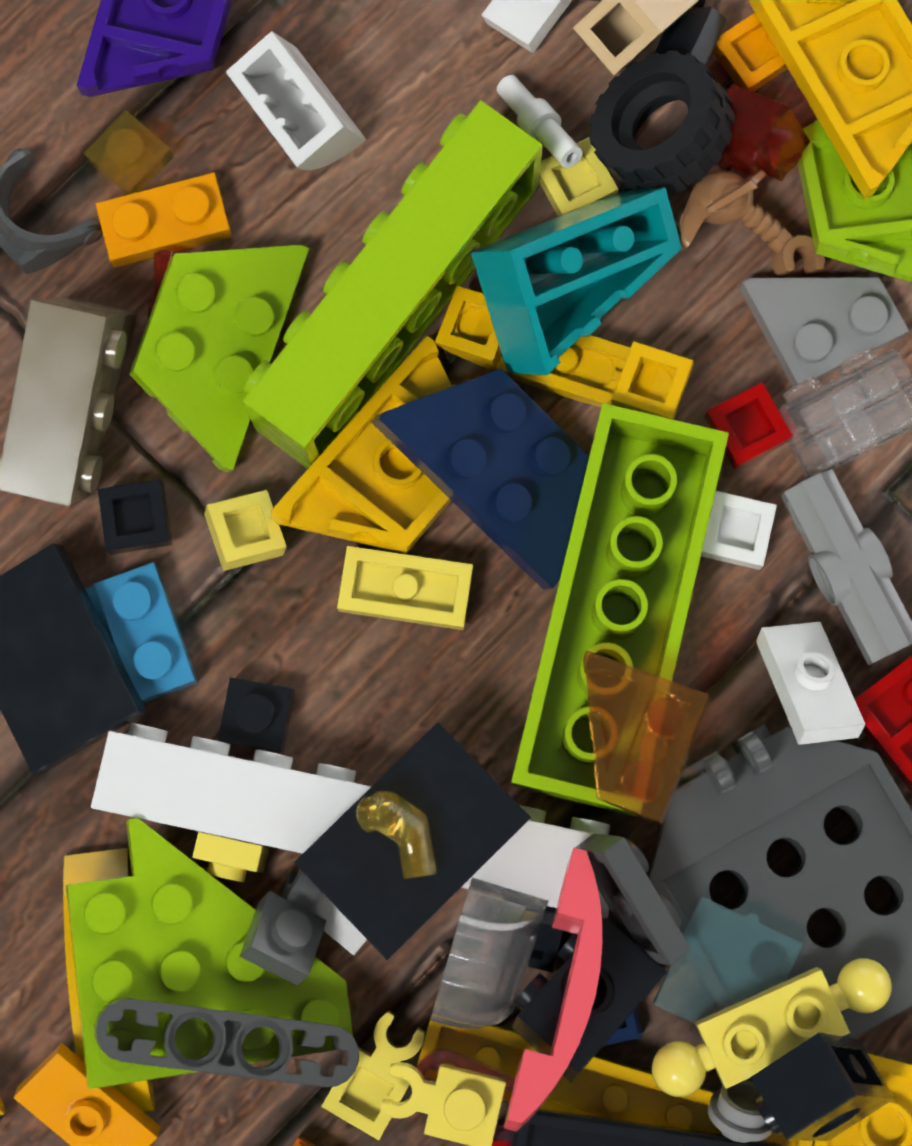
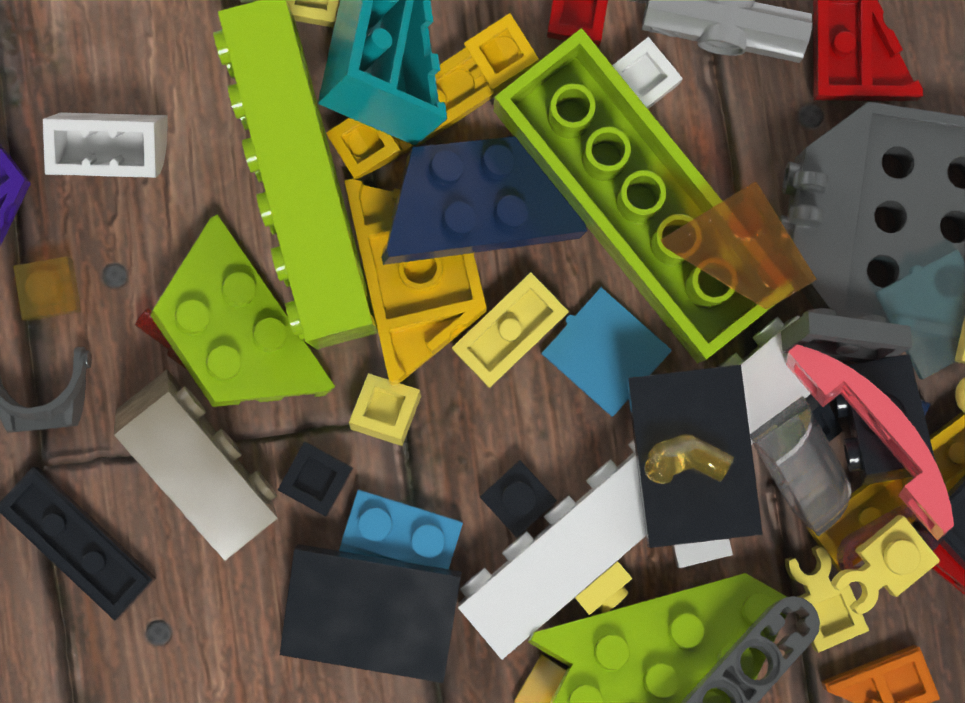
camera: 60 degrees left, 5 degrees up
(163, 219) = (115, 299): light orange plate -> none
(284, 930) = (686, 588): dark grey plate -> none
(460, 687) = (604, 349): none -> dark azure piece
(810, 683) = (786, 109): white plate -> none

